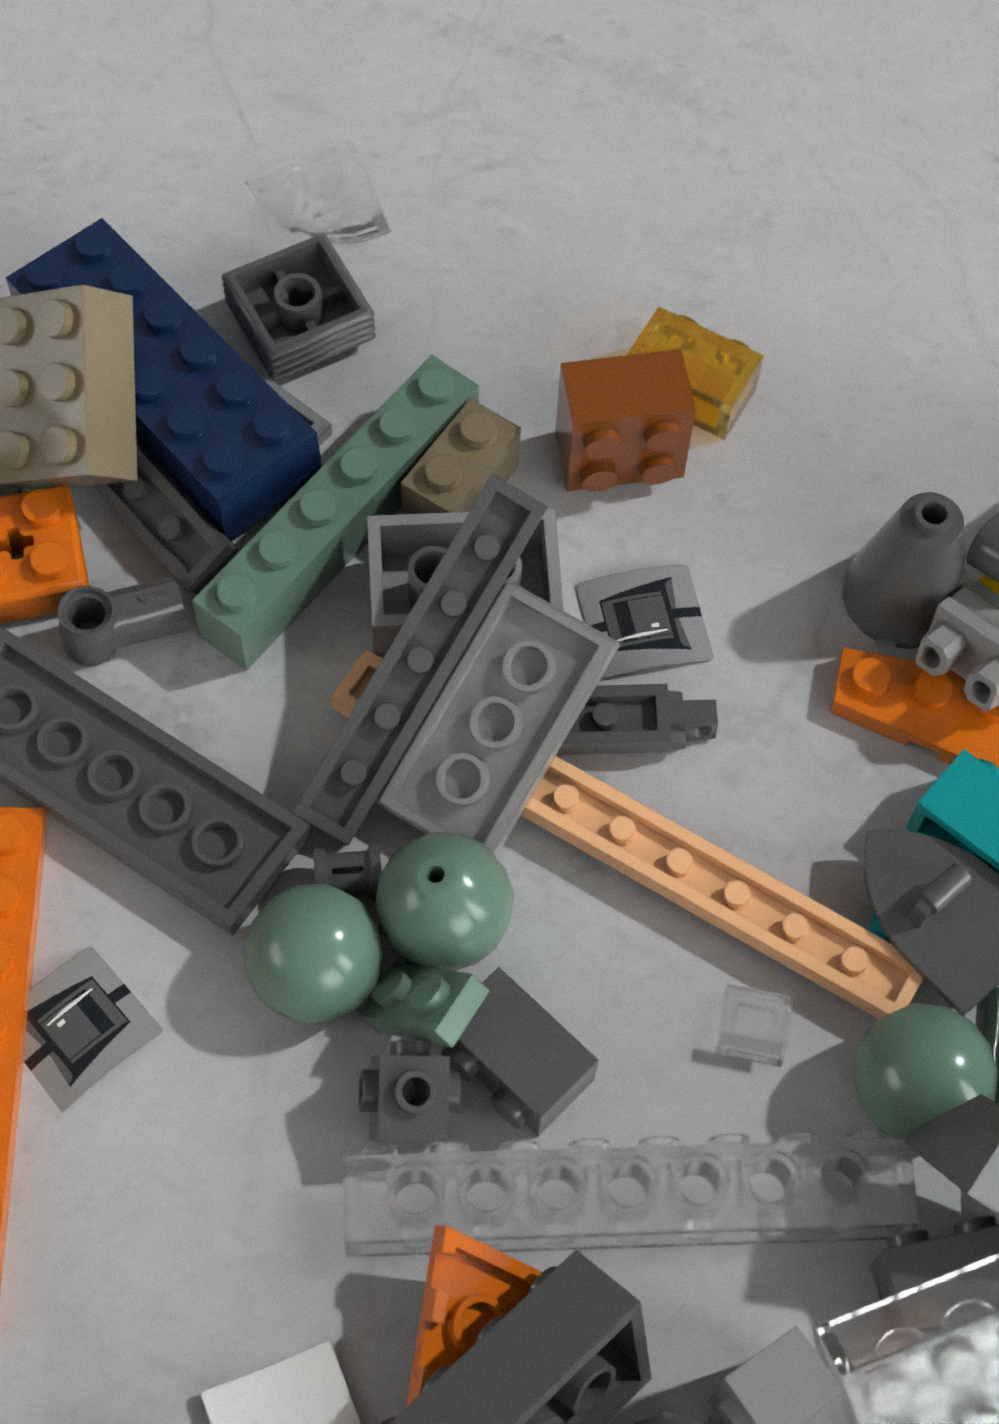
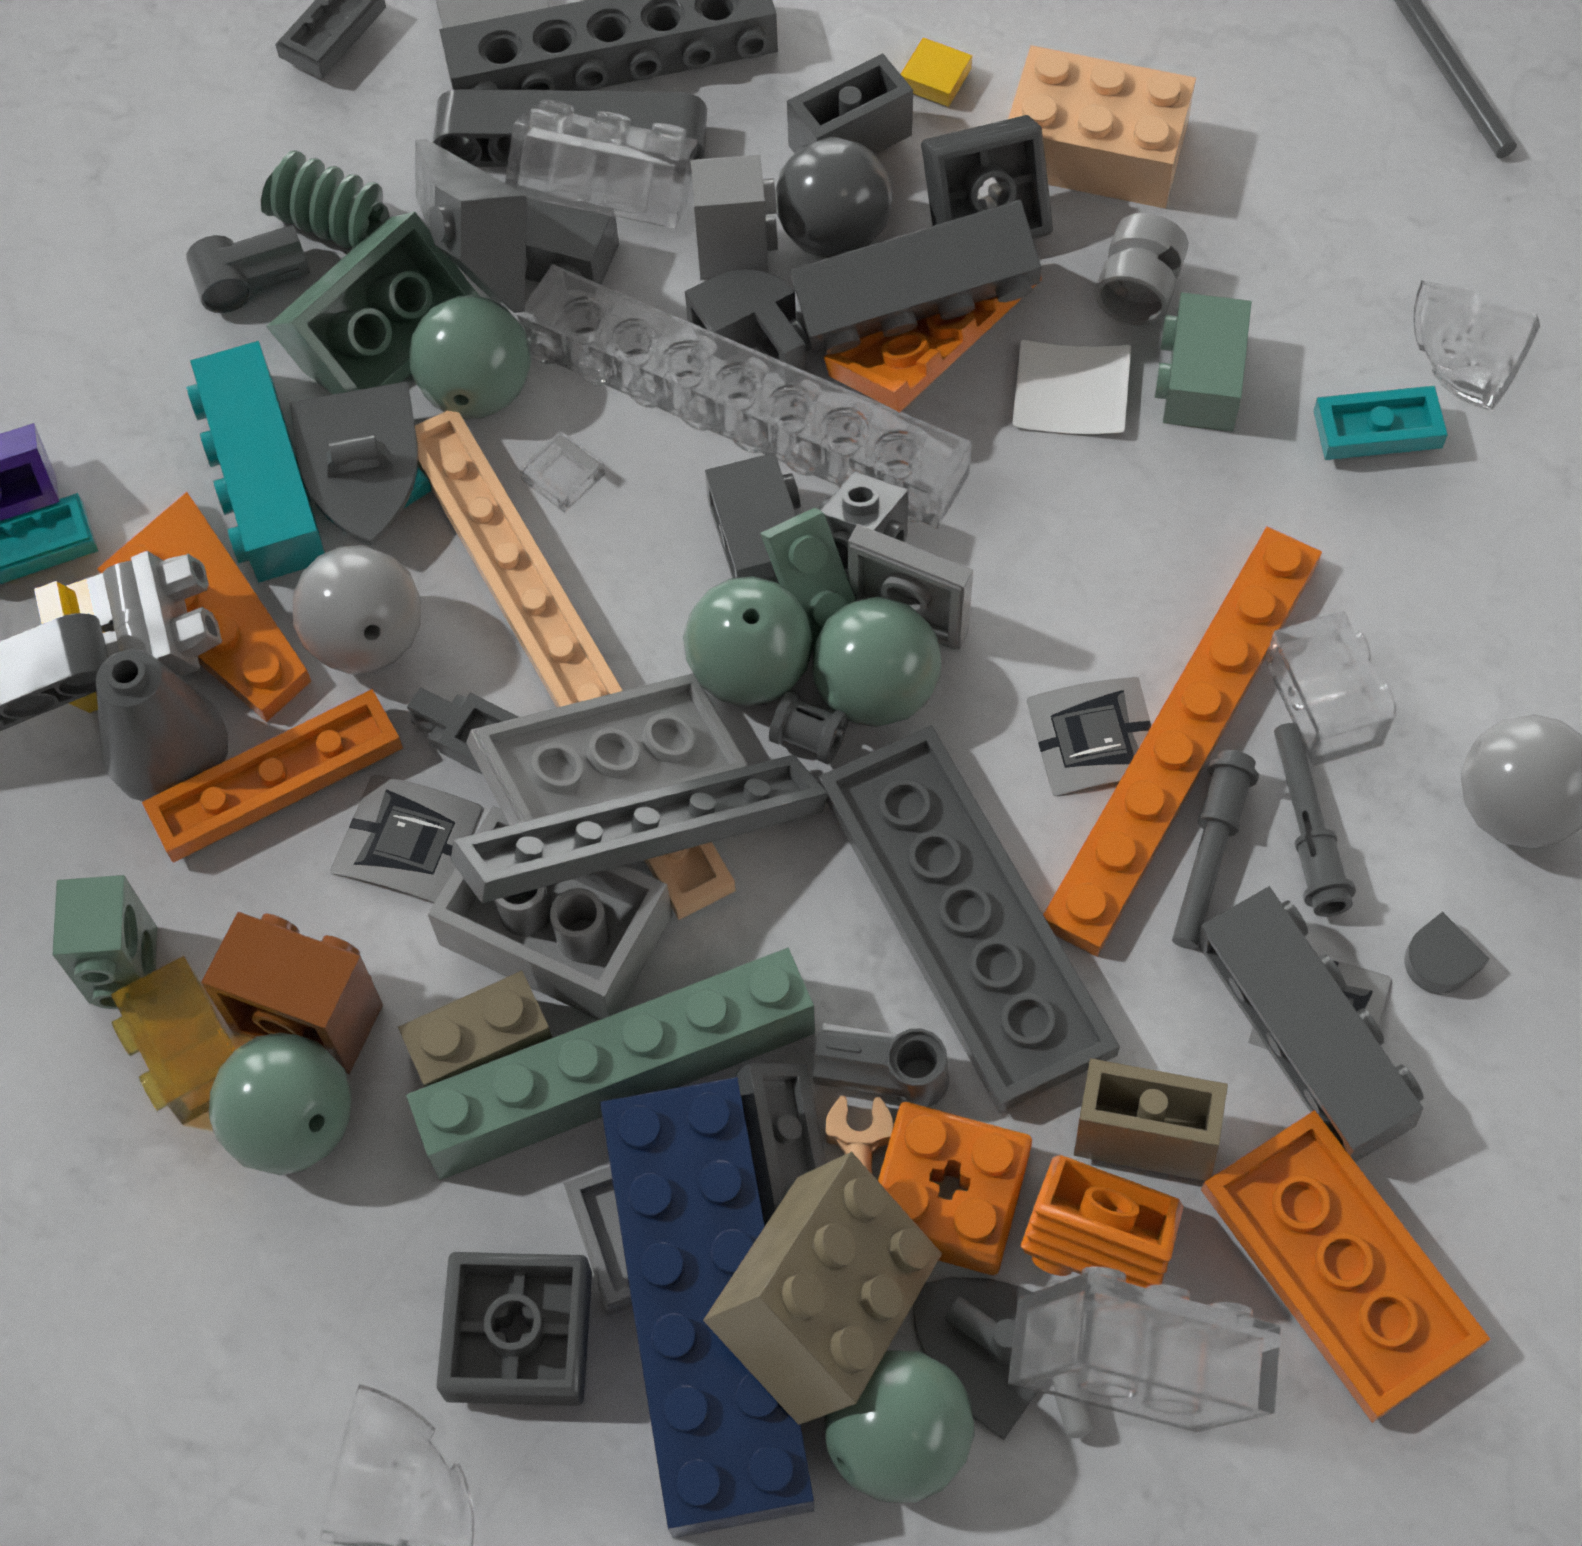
camera: 145 degrees left, 0 degrees up
(111, 559) = (864, 1142): none -> light nougat bar
(317, 1033) = (918, 578): none -> light grey tile
(567, 326) = (280, 1103): none -> sand green piece
(695, 1300) = (752, 311): none -> dark grey brick
(786, 602) = (272, 775): none -> orange plate
(800, 386) = (102, 936): none -> sand green brick
(821, 746) = (356, 609): none -> light grey piece

